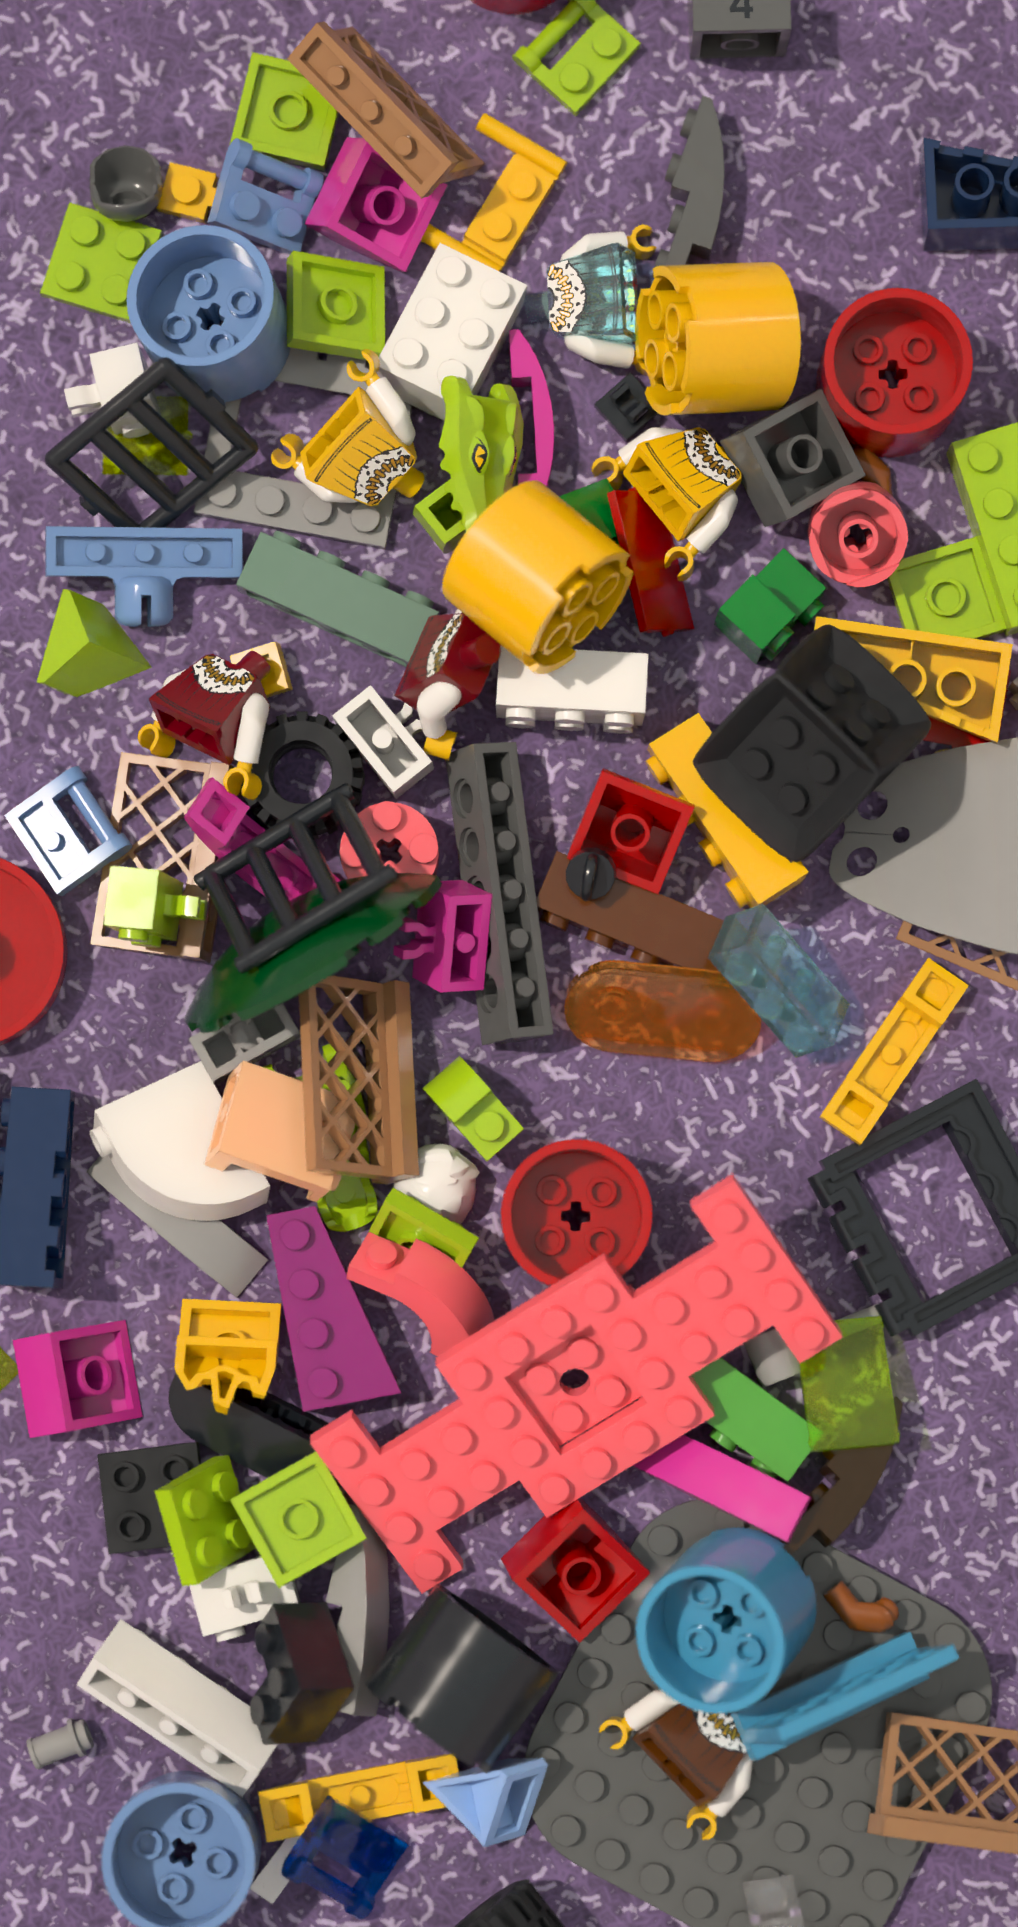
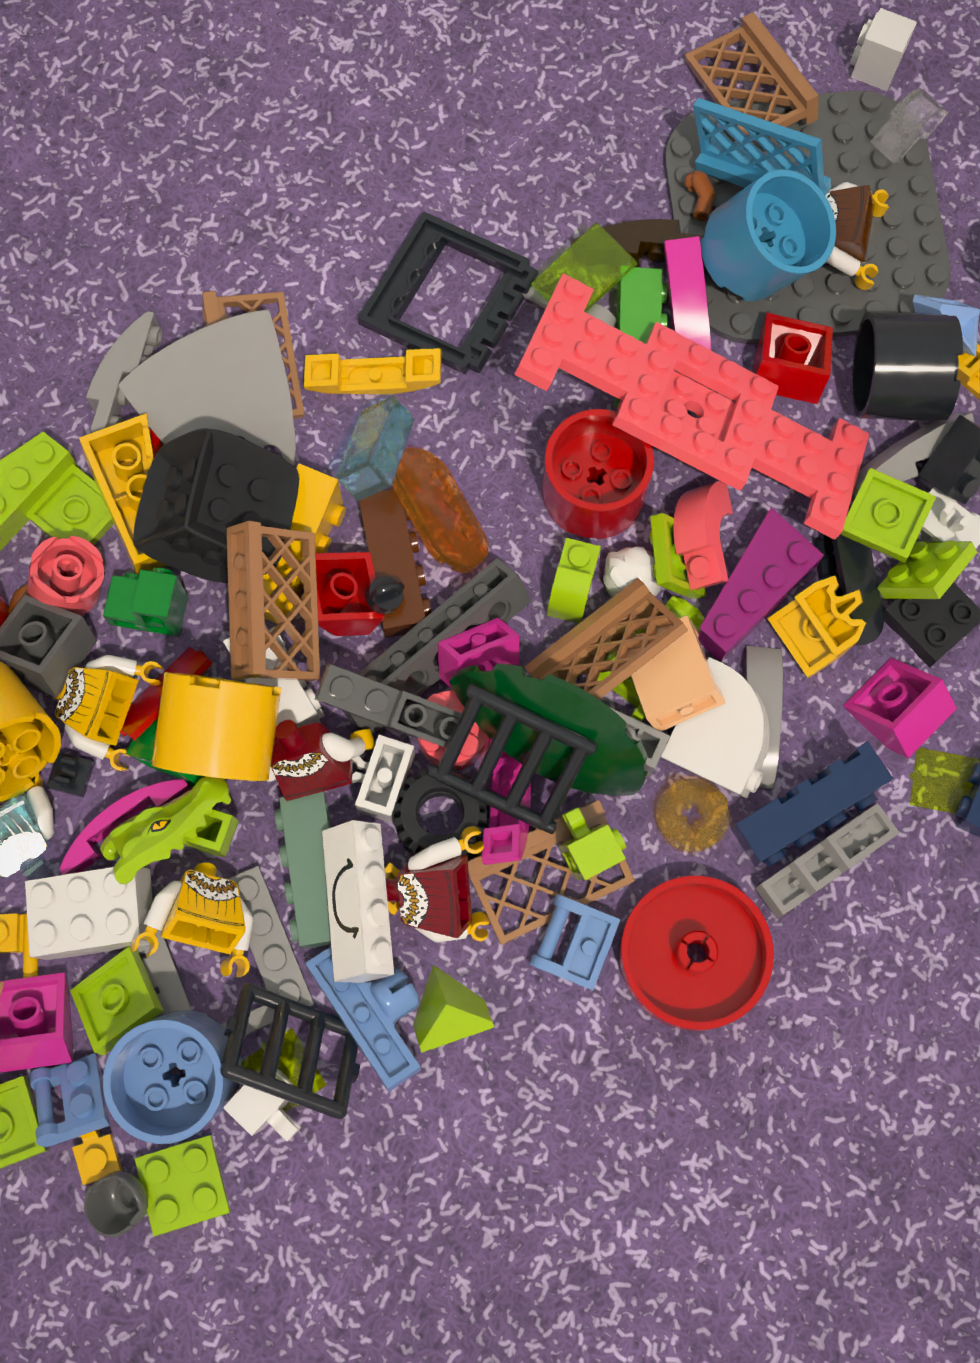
camera: 125 degrees left, 10 degrees down
(120, 1029) = (673, 825): none -> clear yellow plate
(262, 619) = (357, 902): none -> white brick
(449, 787) = (387, 706): none -> dark grey slope
(654, 699) = (250, 601): none -> medium nougat fence

